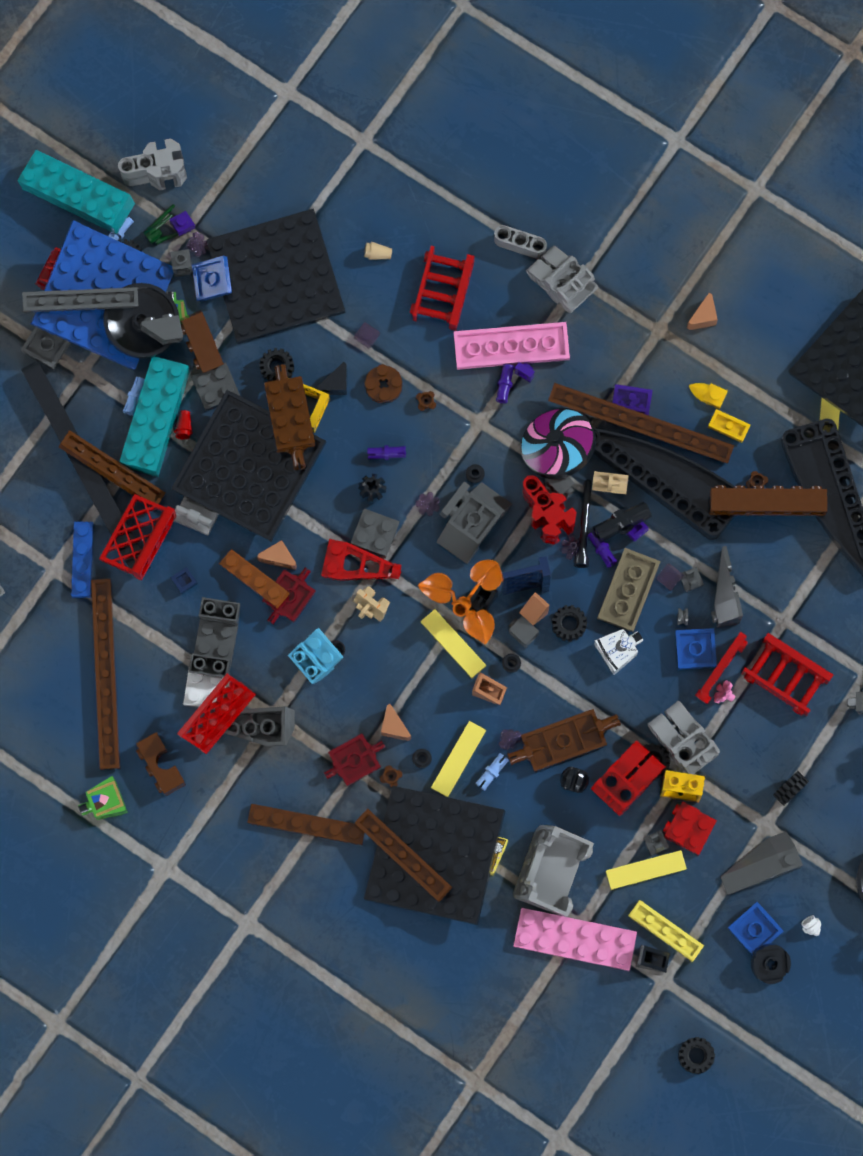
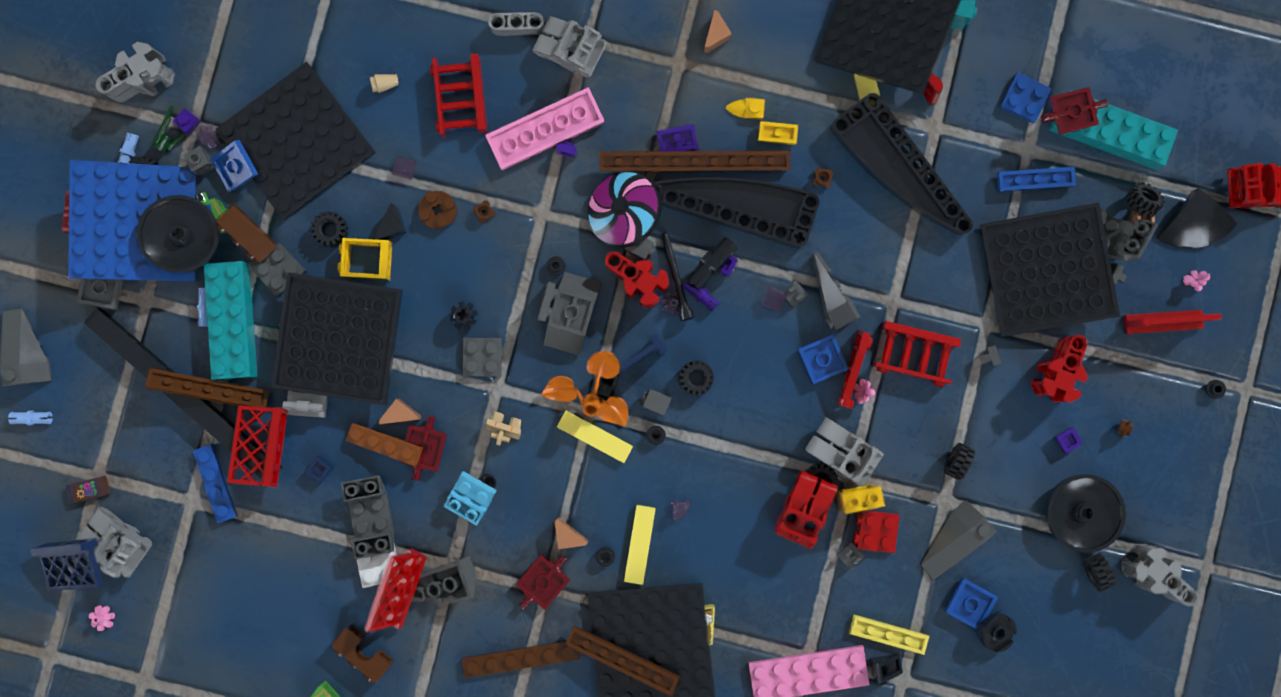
camera: 25 degrees left, 10 degrees up
(76, 192) = (69, 127): teal brick -> none
(80, 299) = (105, 238): dark grey plate -> none
(105, 674) = (278, 586): reddish brown plate -> none
(164, 330) = (203, 236): dark grey slope -> none
(183, 426) = (262, 320): red cone -> none
(289, 415) = (357, 277): reddish brown plate -> none
(336, 557) = (455, 399): red plate -> none
(386, 452) = (465, 275): dark purple pin -> none
(390, 771) = (582, 589): reddish brown plate -> none
(428, 504) = (525, 313): clear purple plant -> none
(488, 689) = (644, 469): nougat slope -> none
(492, 771) = (675, 545): light blue pin -> none
(504, 383) = (552, 168): dark purple pin -> none
(535, 609) = (660, 379): nougat slope -> none
(551, 869) = (763, 620): light grey windscreen -> none
(564, 740) = (731, 491): reddish brown plate -> none
(574, 779) = (755, 526): black piece -> none
(610, 482) = (686, 229): tan hips -> none
(618, 649) = (751, 386): white torso -> none
(628, 590) = (740, 325): dark tan plate -> none
(646, 870) = (850, 584): light yellow tile -> none
(682, 616) = (799, 333): dark grey bush -> none
(768, 501) = (843, 195): reddish brown brick -> none
(811, 925) = (1021, 581): white plate -> none

